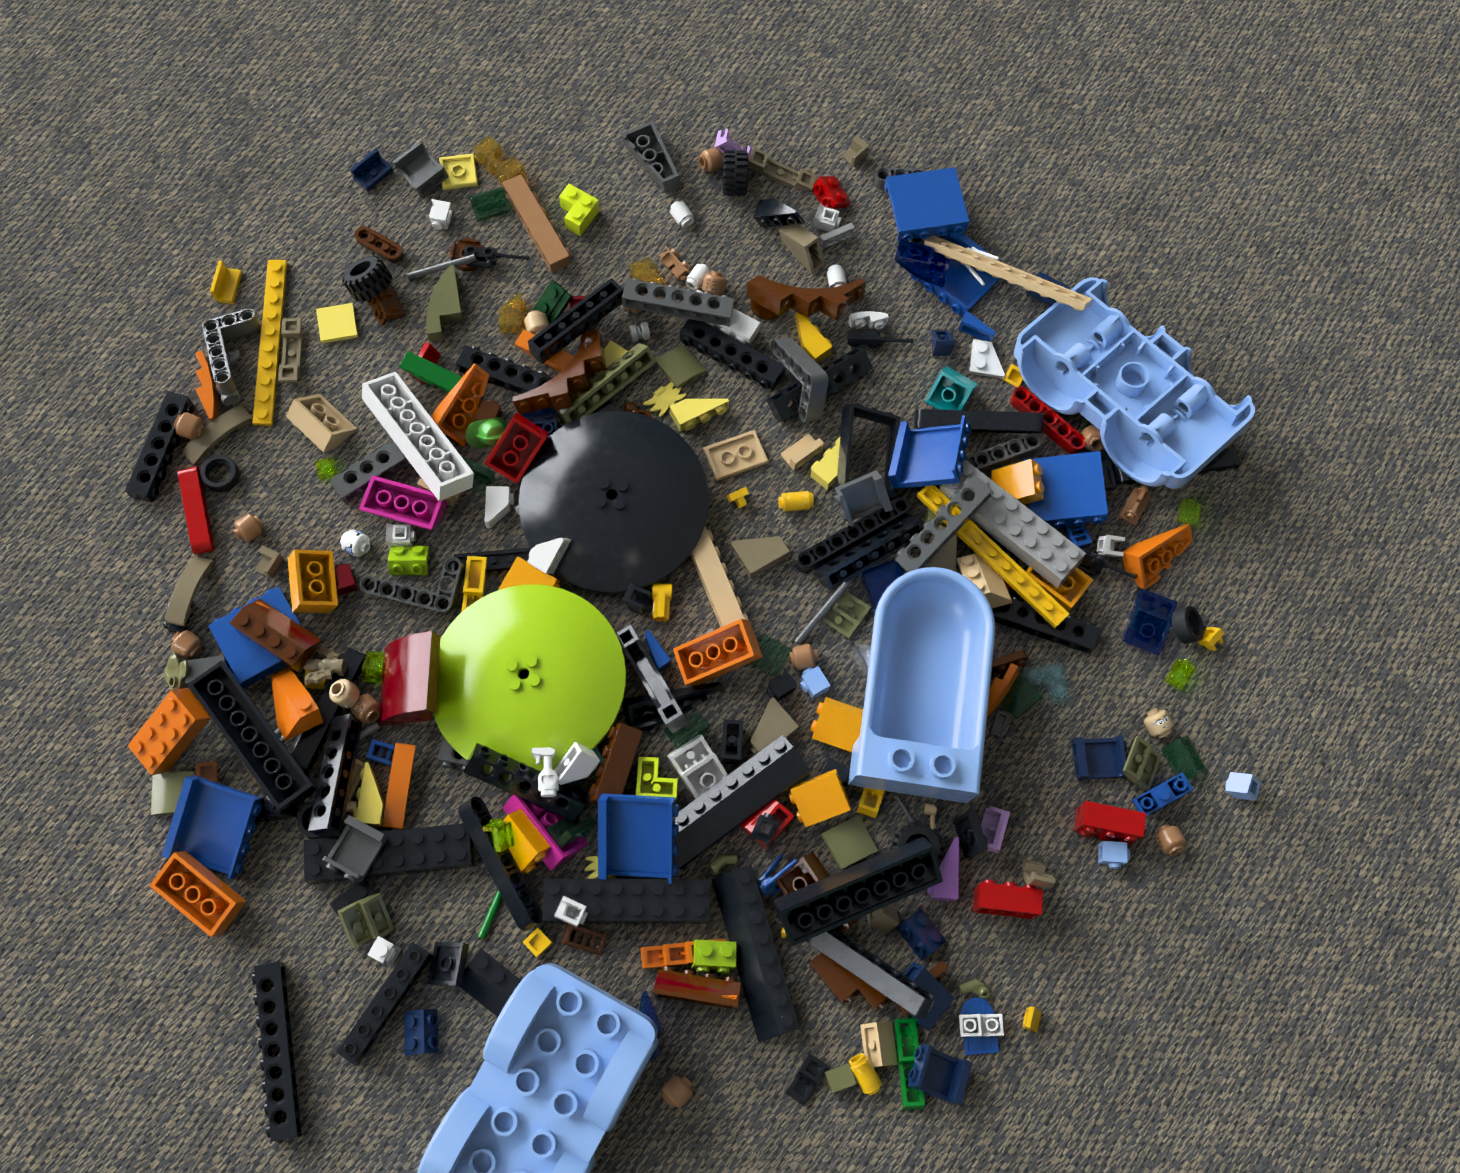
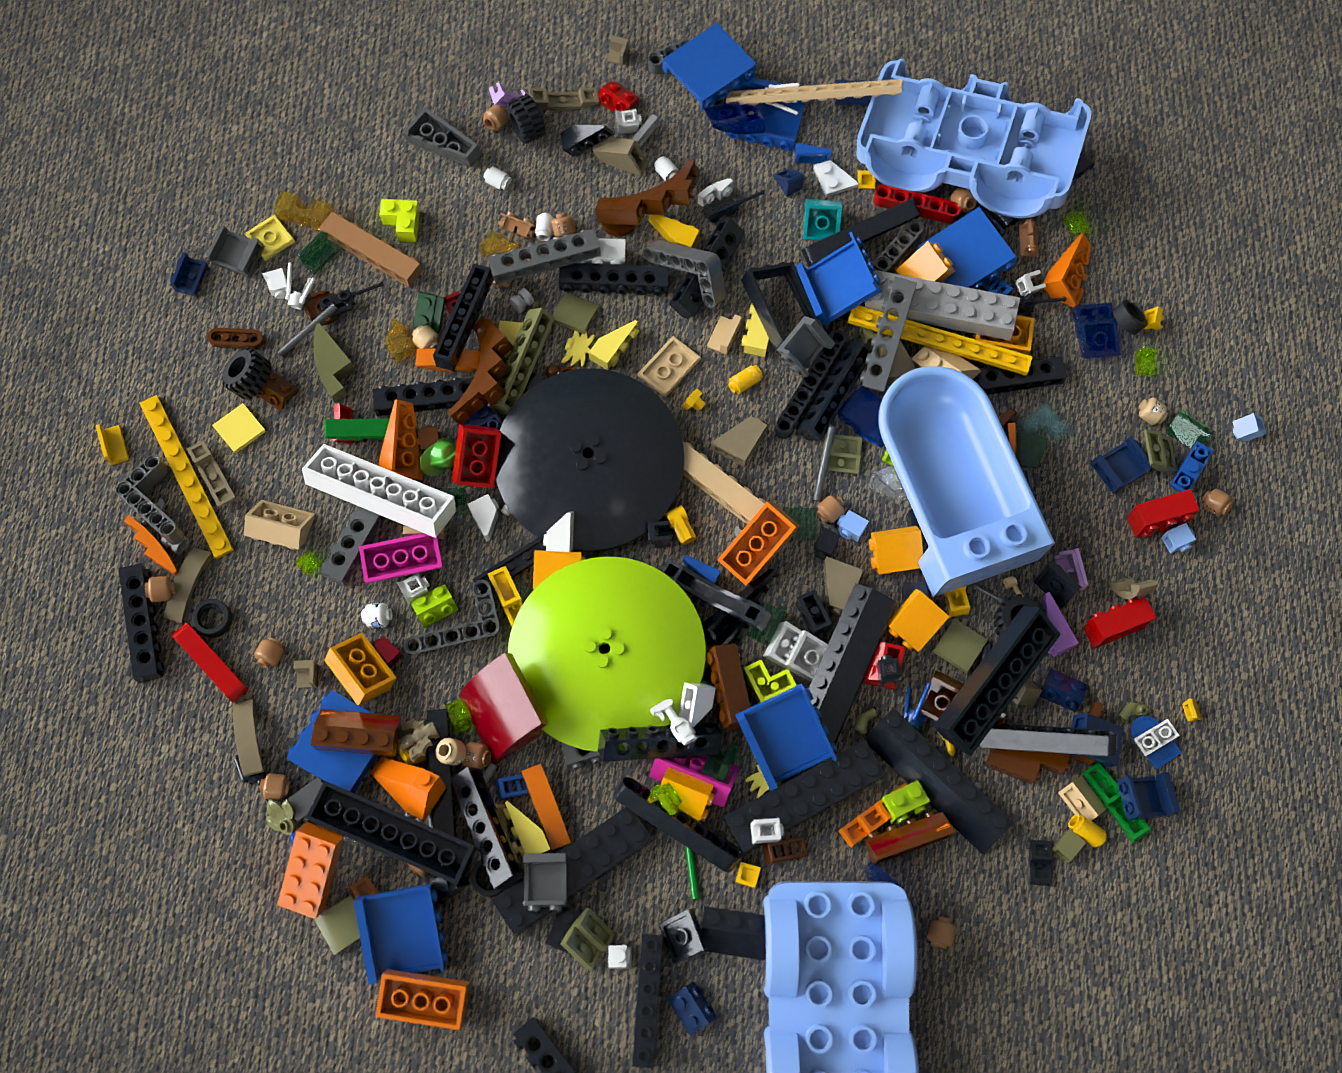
camera: 25 degrees left, 0 degrees up
(448, 236) = (297, 299): none -> white plant

